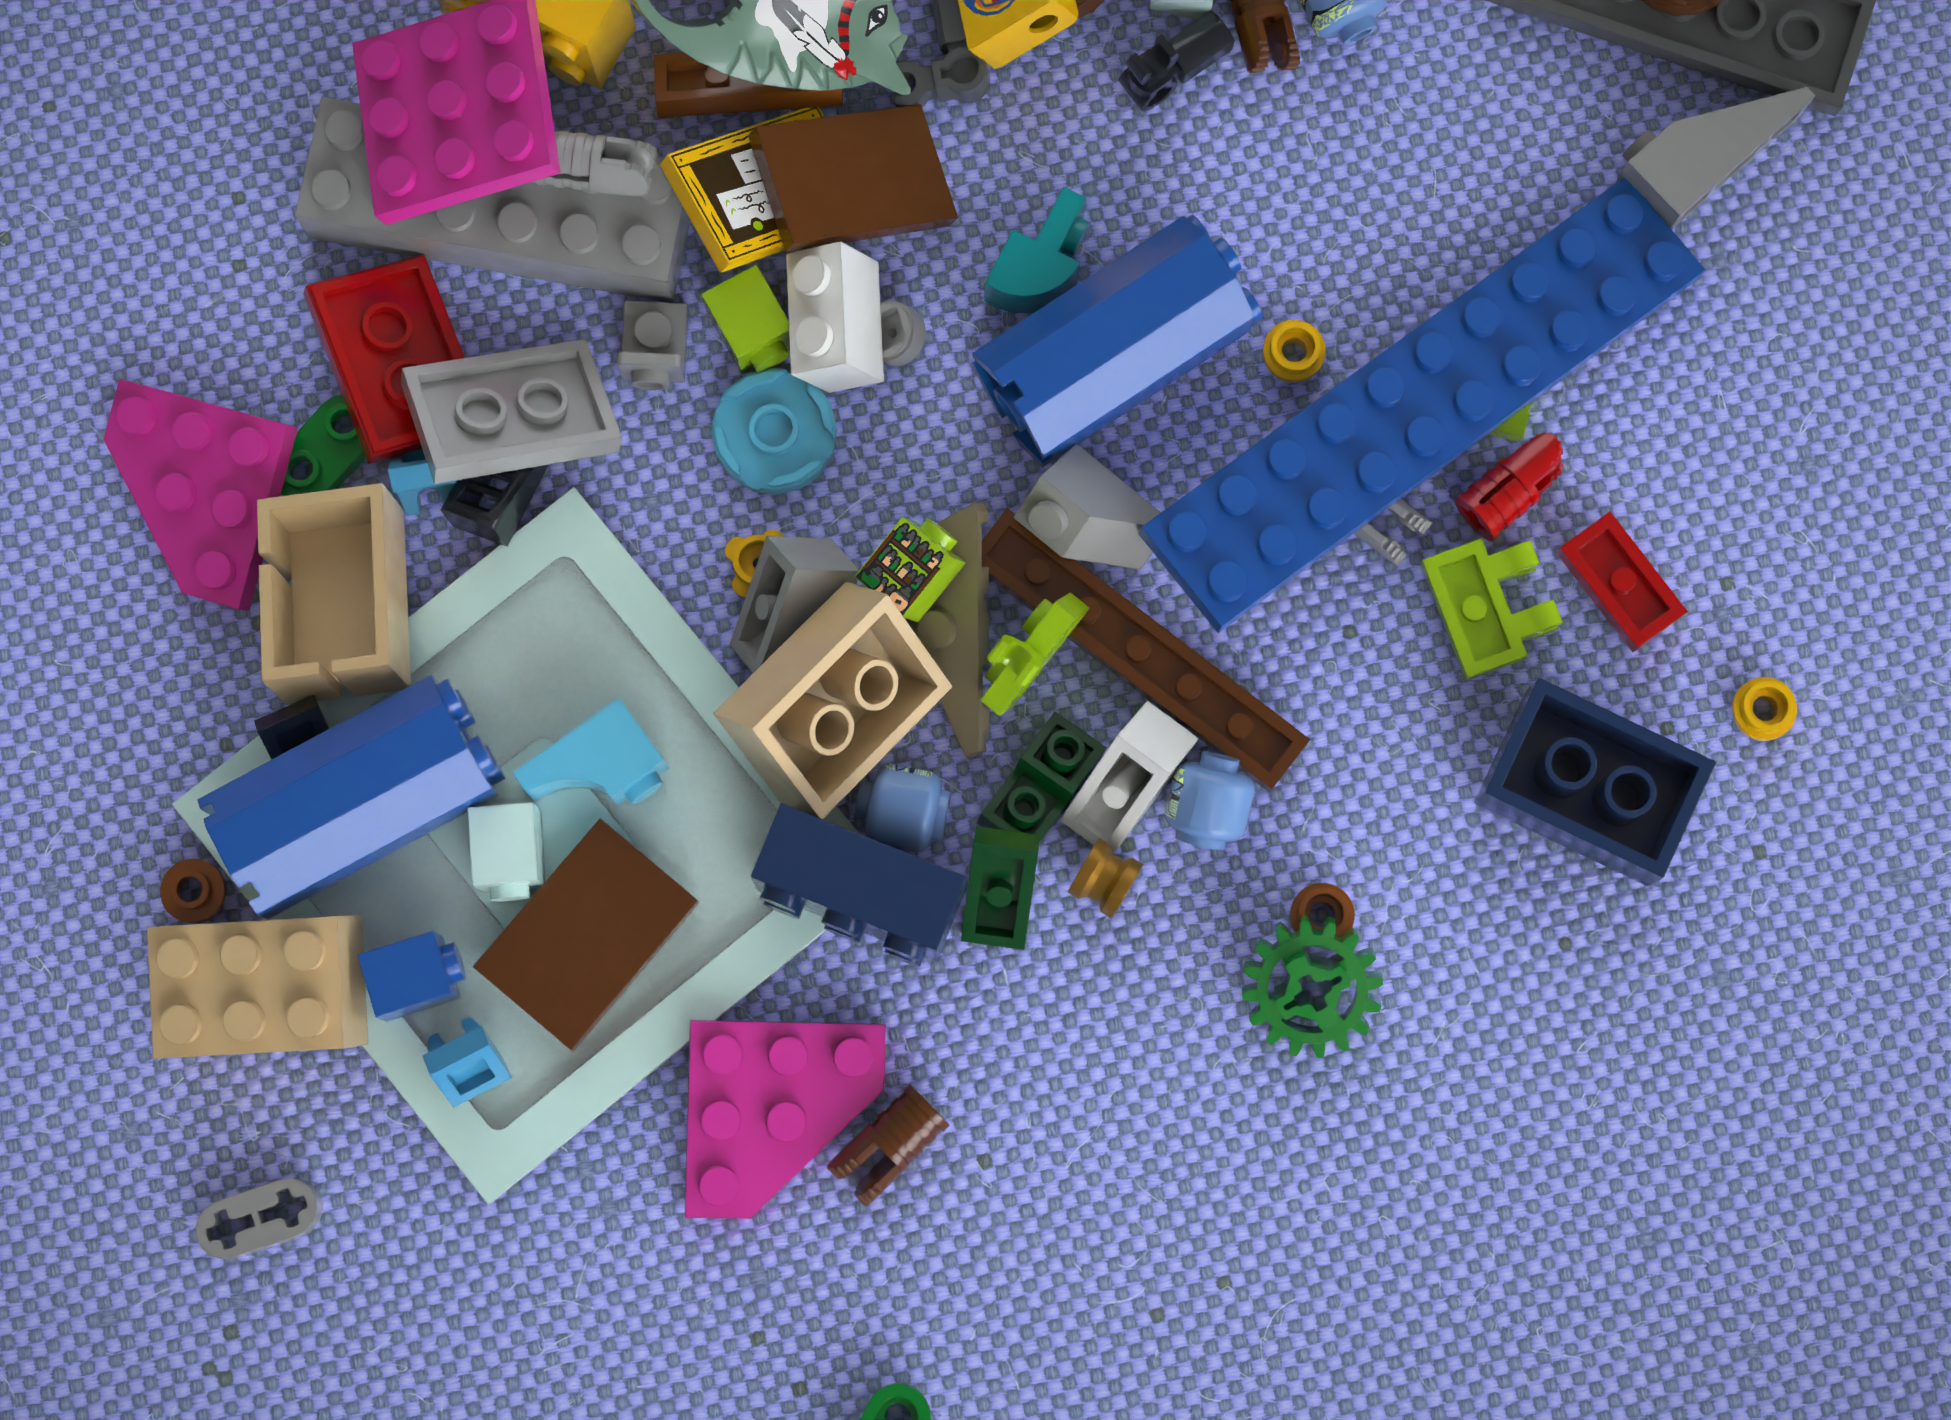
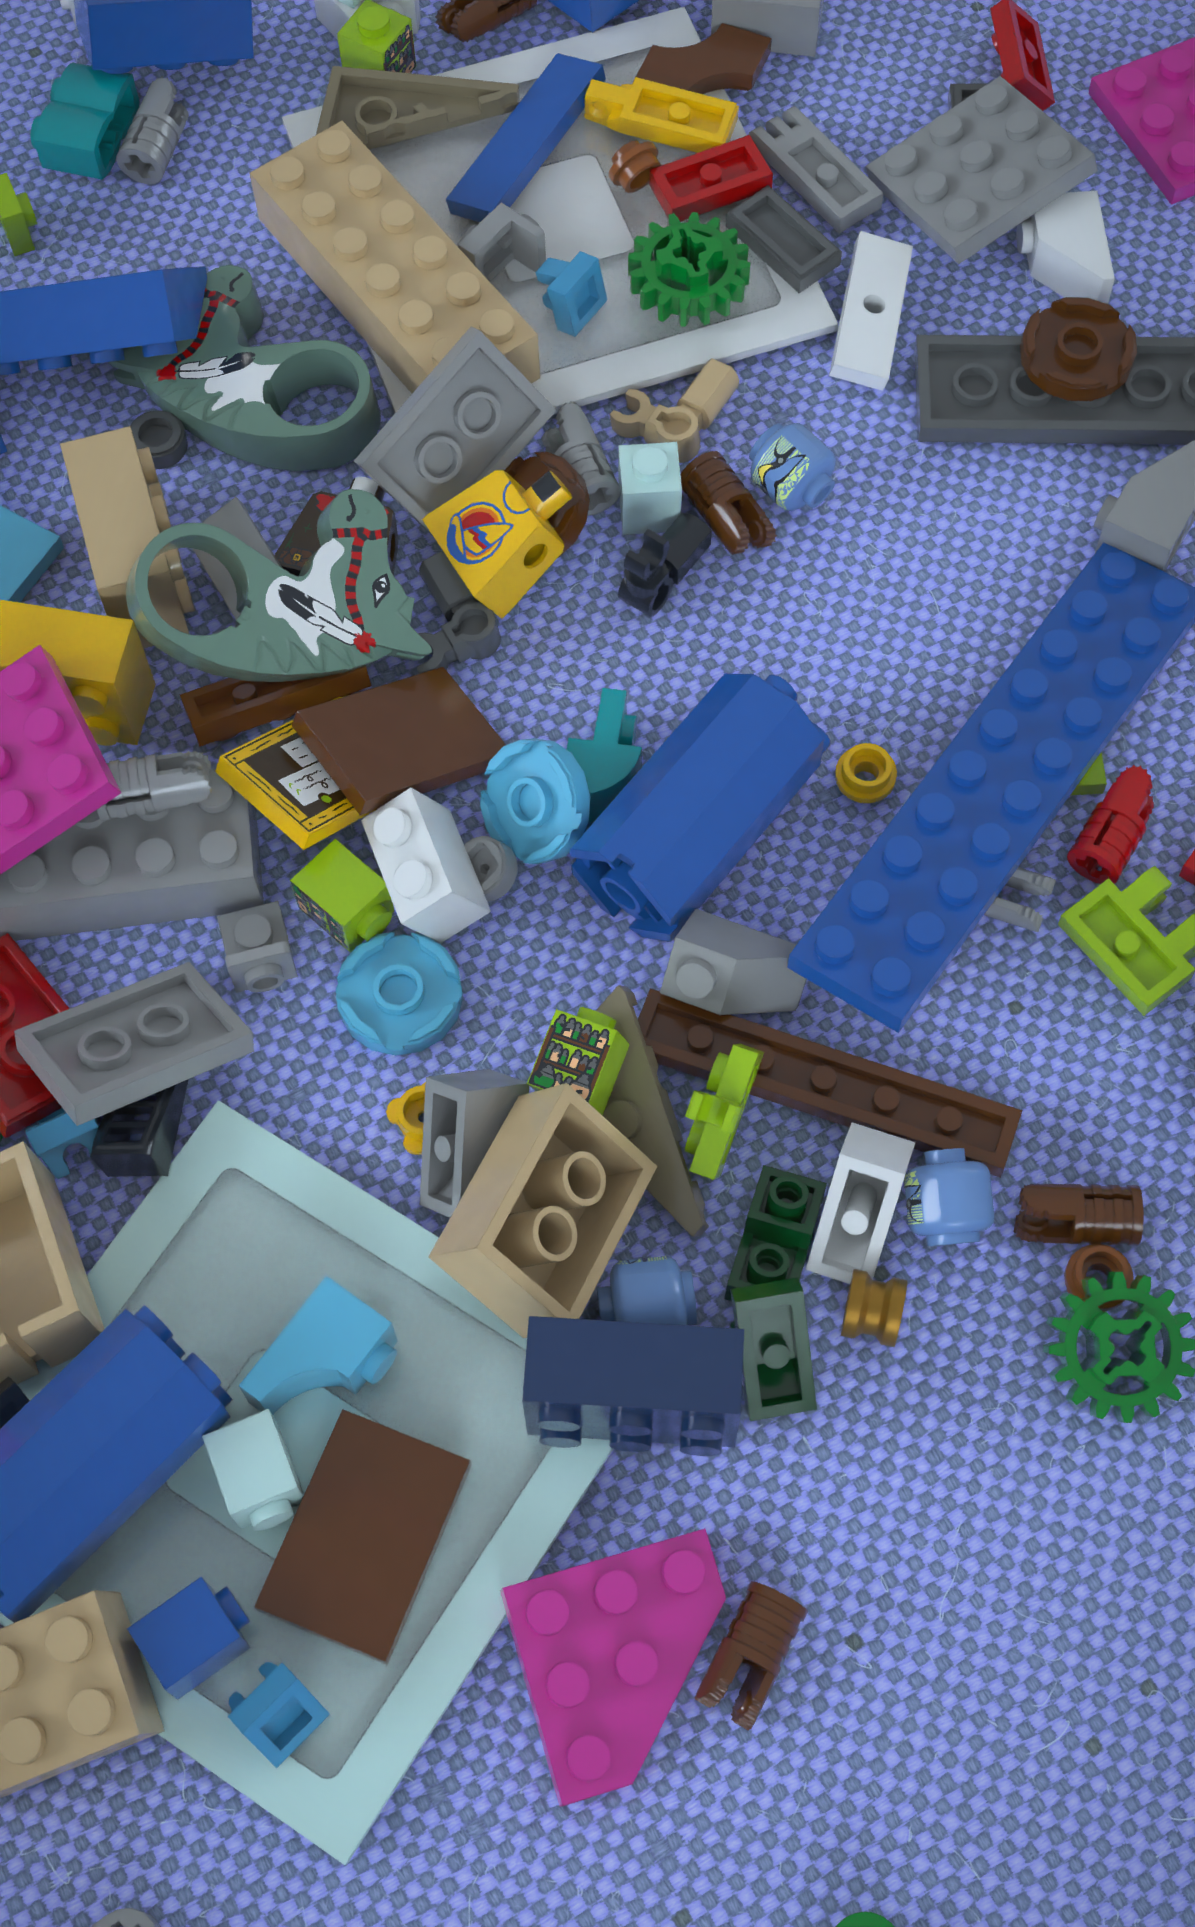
camera: 15 degrees left, 15 degrees down
(960, 284) = (535, 800): none -> medium azure tile
(1326, 852) = (1080, 1214): none -> reddish brown hinge

